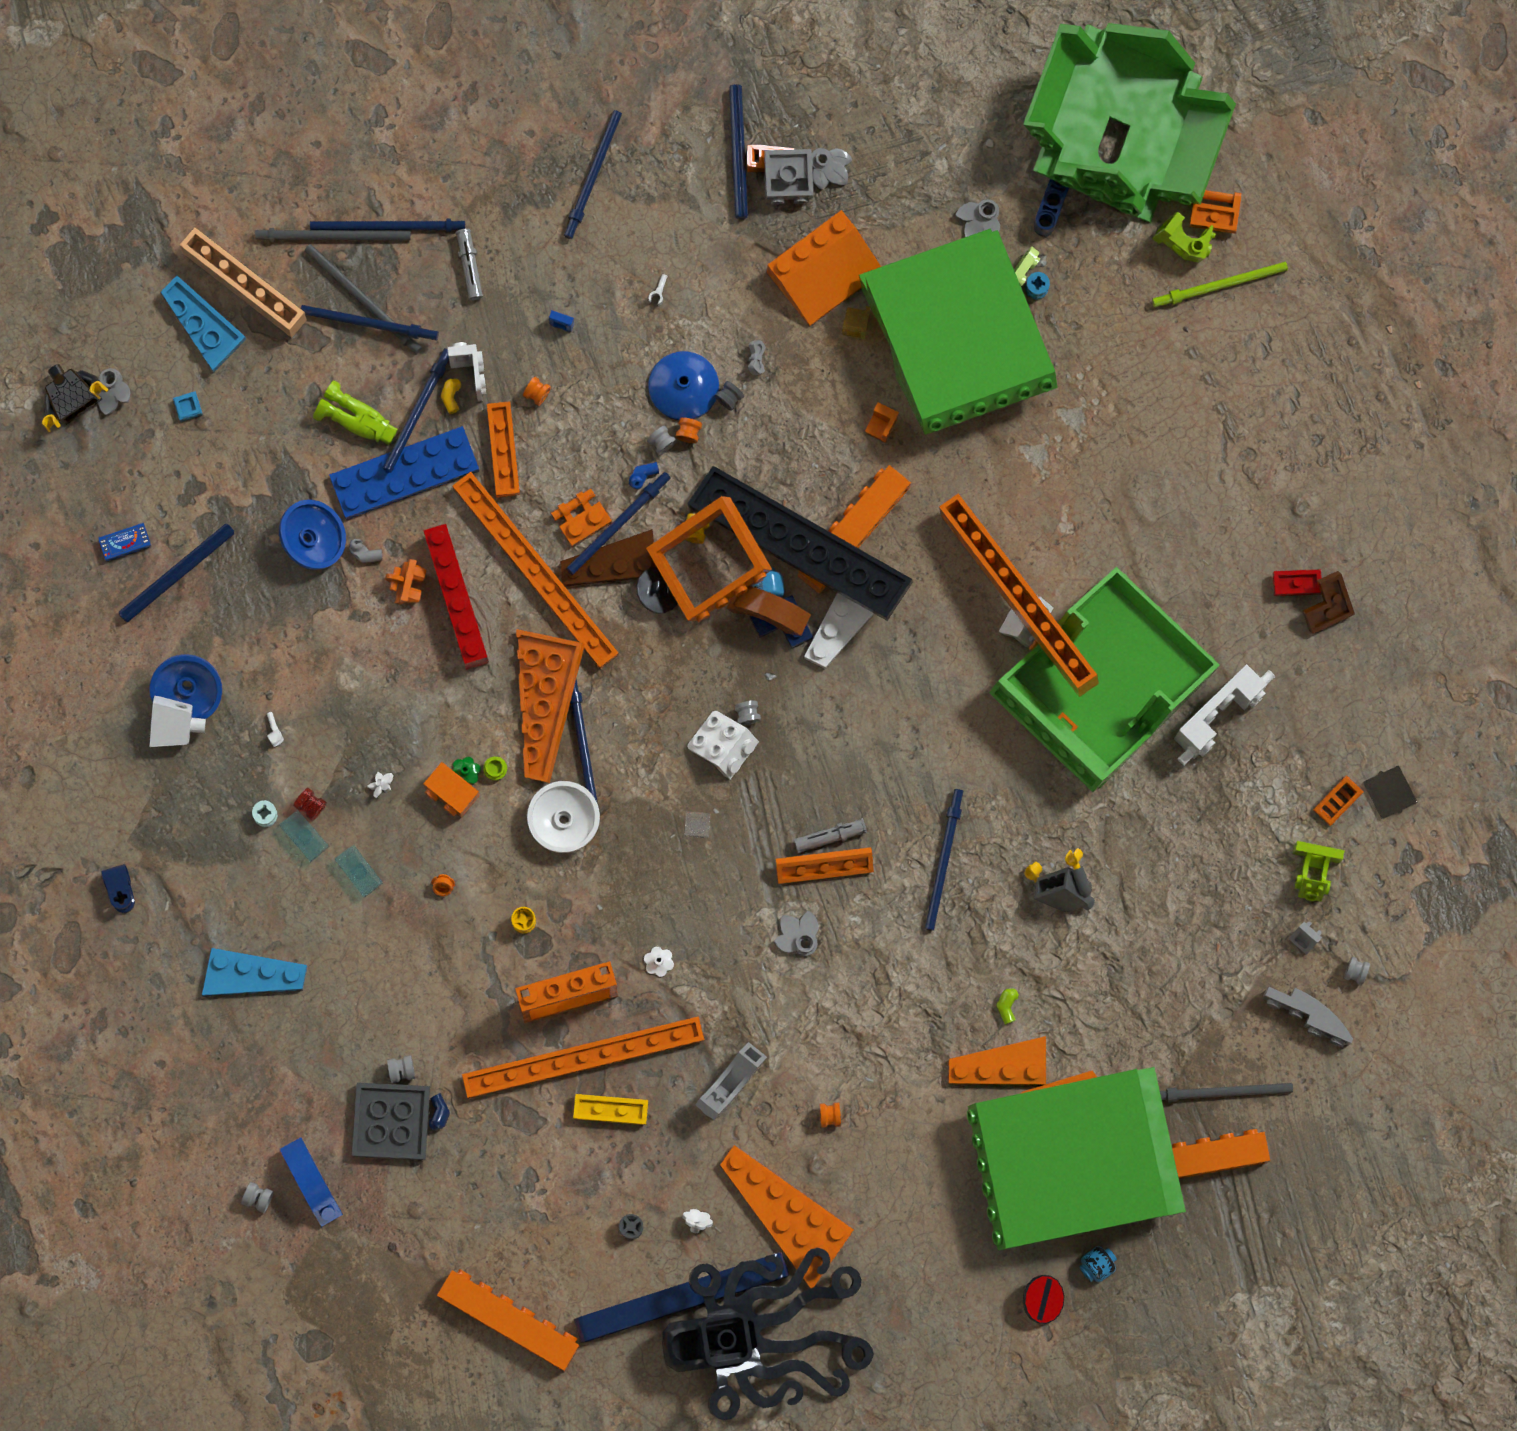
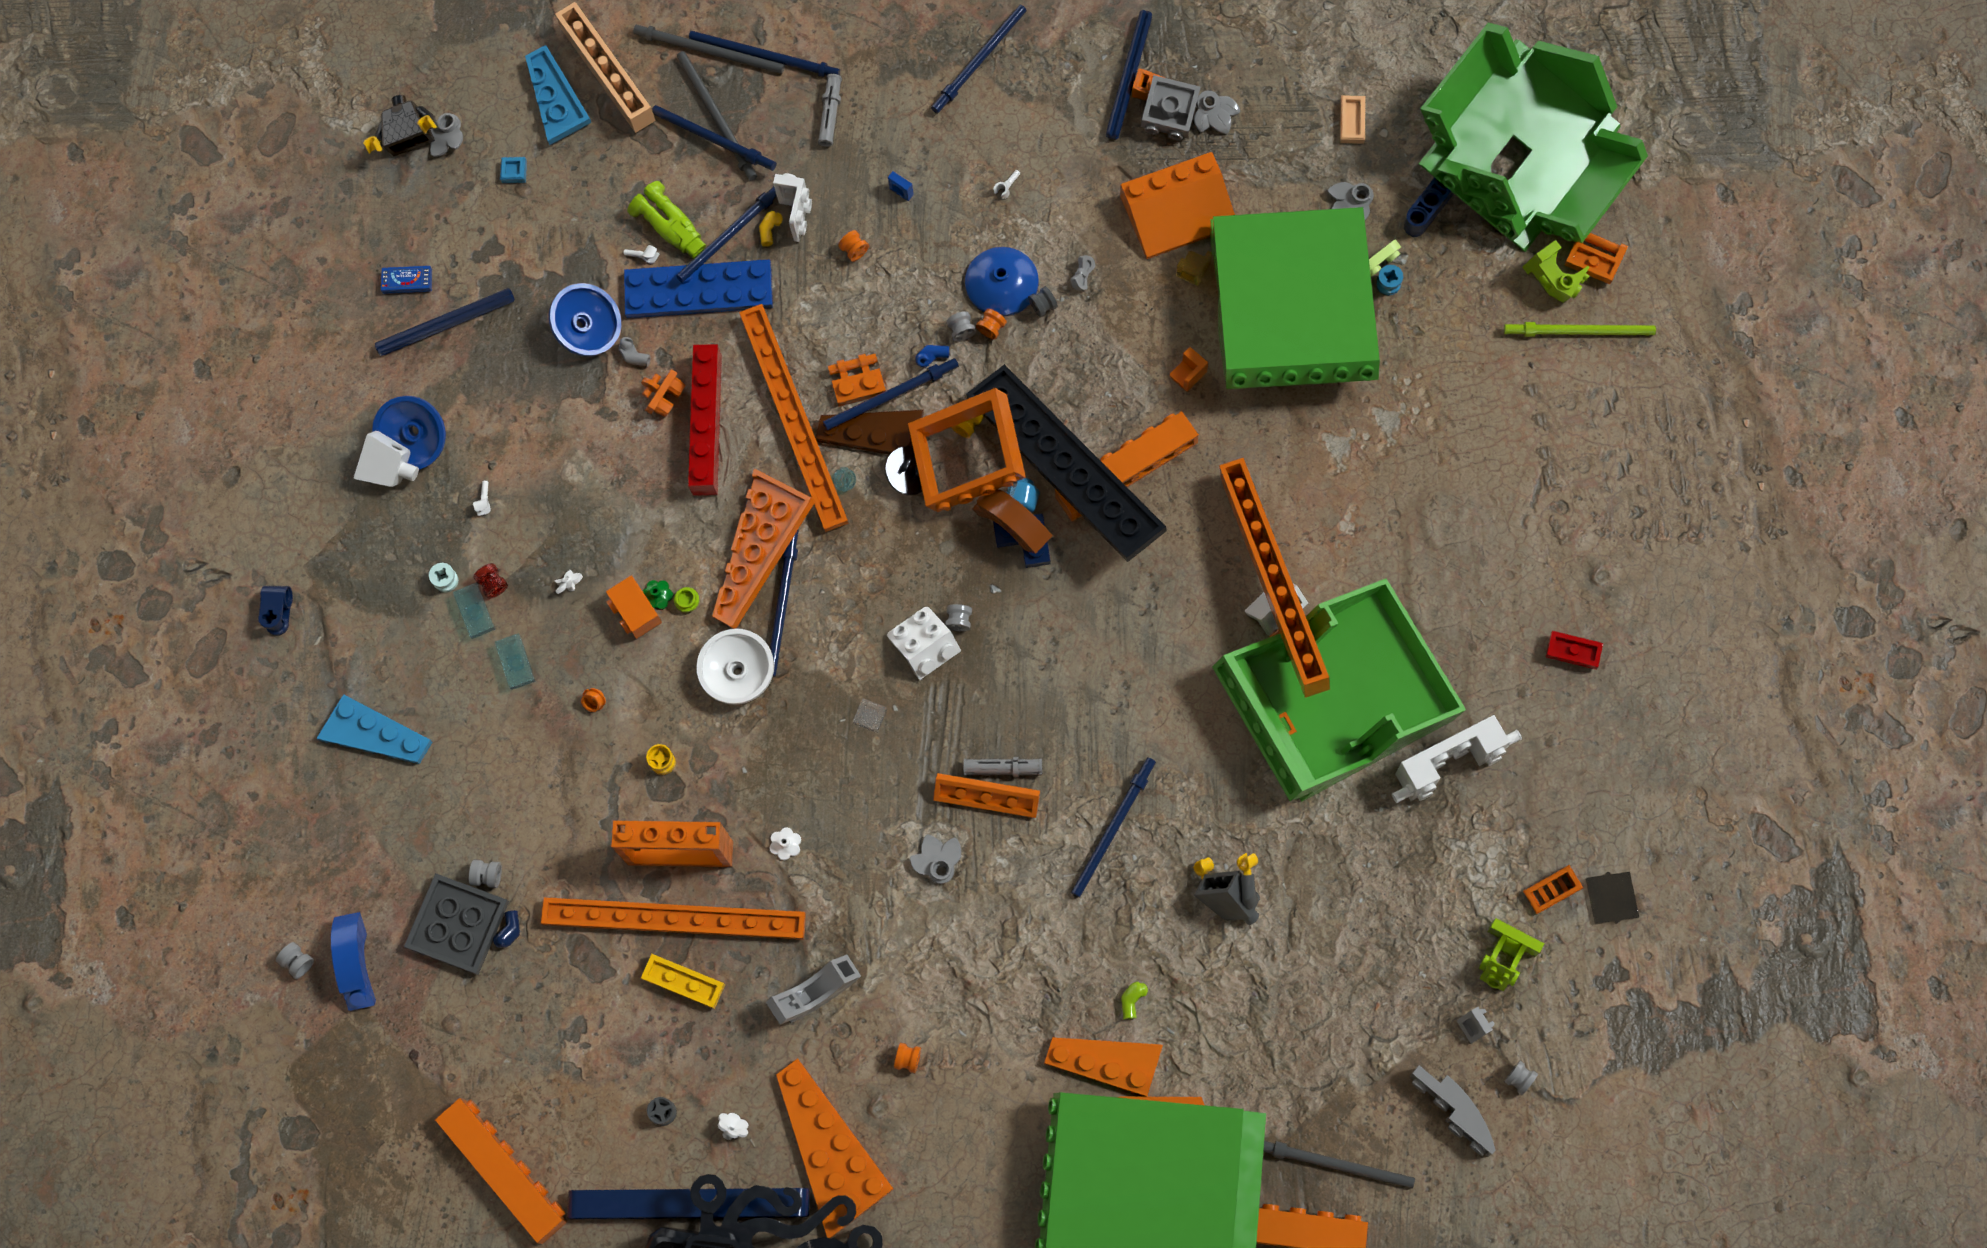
camera: 30 degrees right, 5 degrees down
(347, 454) = (649, 255): none -> white hand
(503, 449) = (801, 292): orange plate -> none
(601, 615) = (844, 479): none -> clear light blue plate
(836, 630) = (1078, 560): white wing -> none
(957, 138) = (1352, 119): none -> light nougat tile
(1335, 604) = (1607, 685): reddish brown plate -> none

